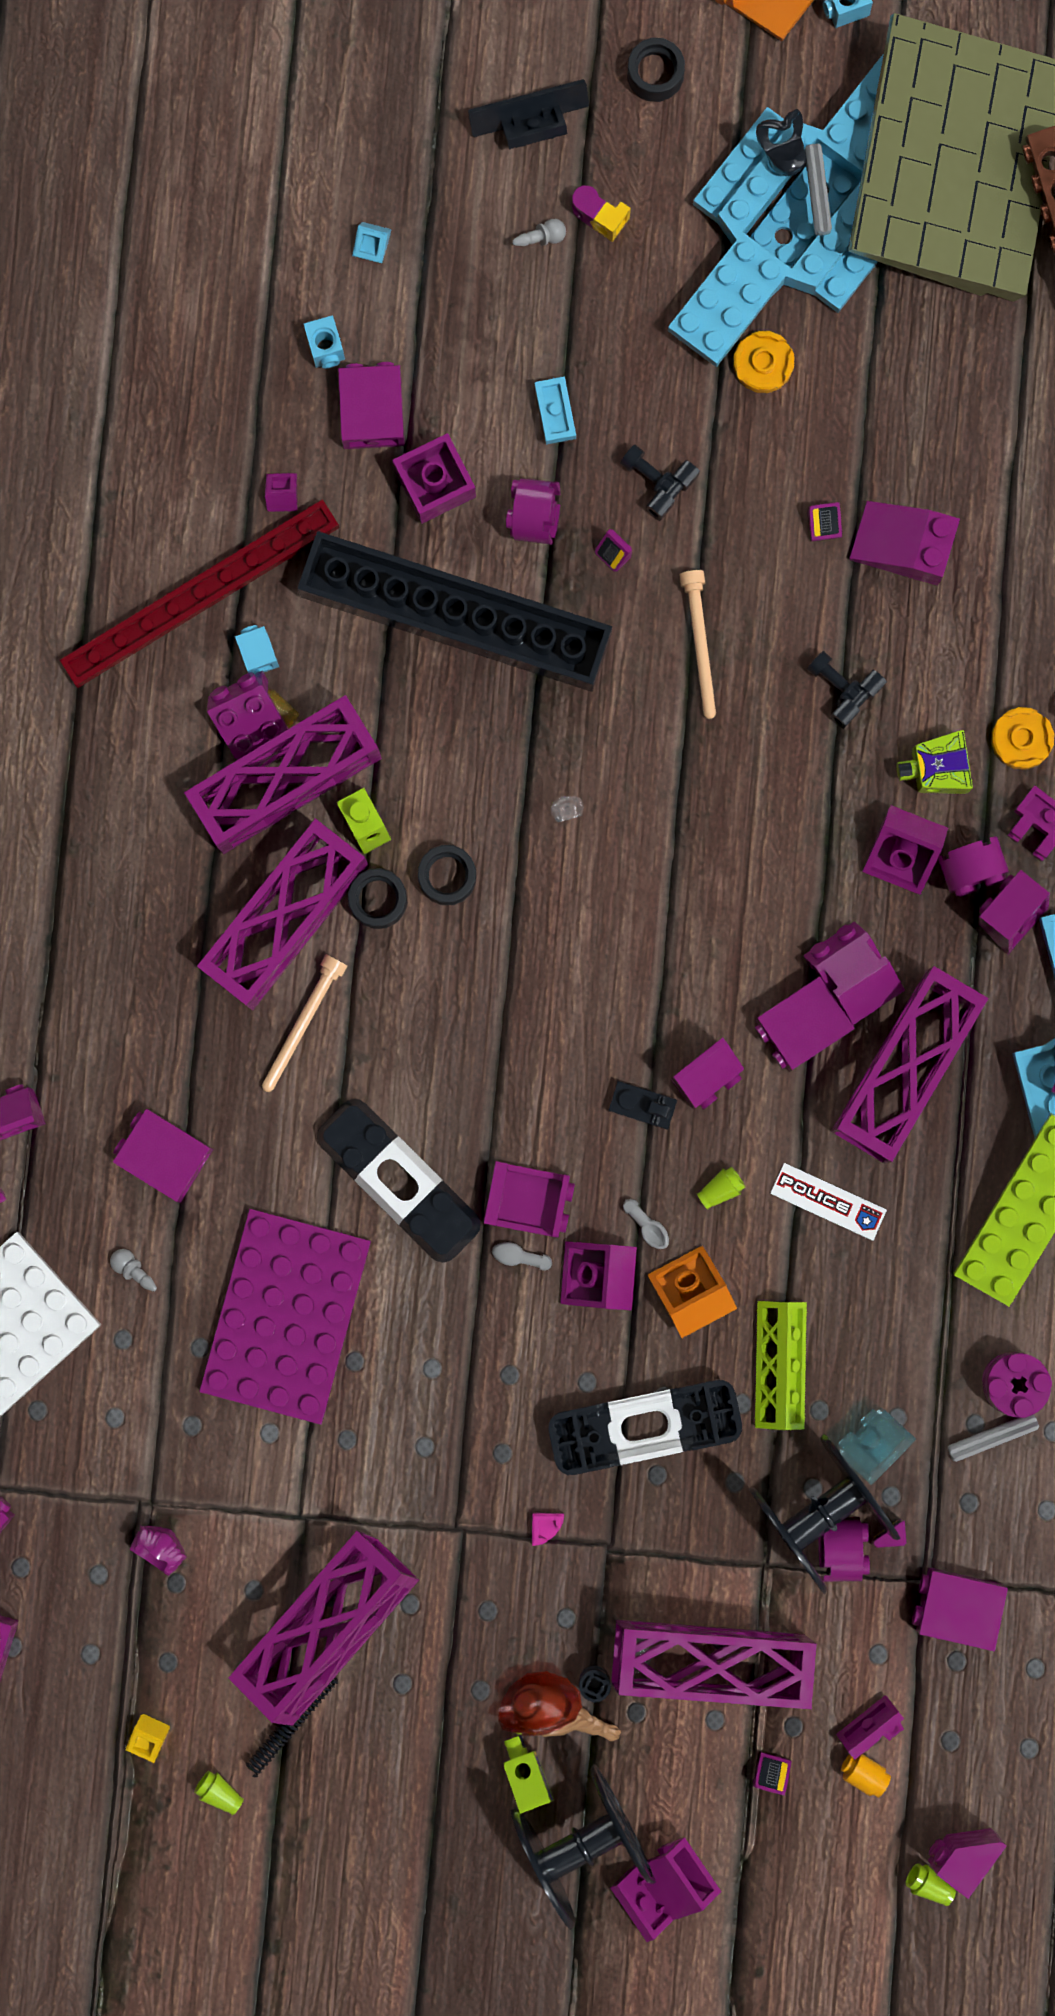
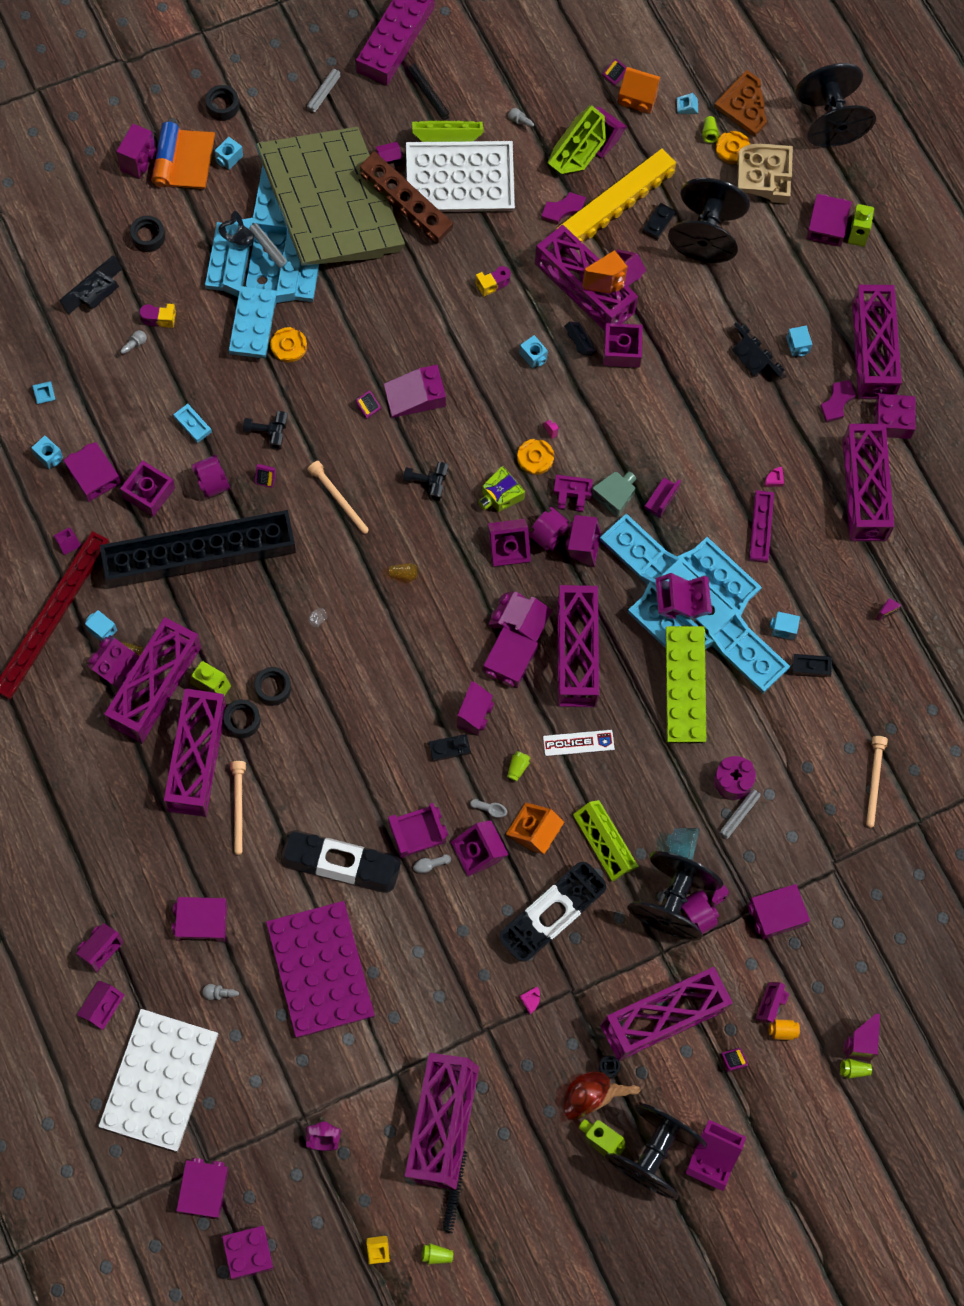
camera: 40 degrees left, 15 degrees down
(729, 809) = (404, 571): none -> clear yellow cone

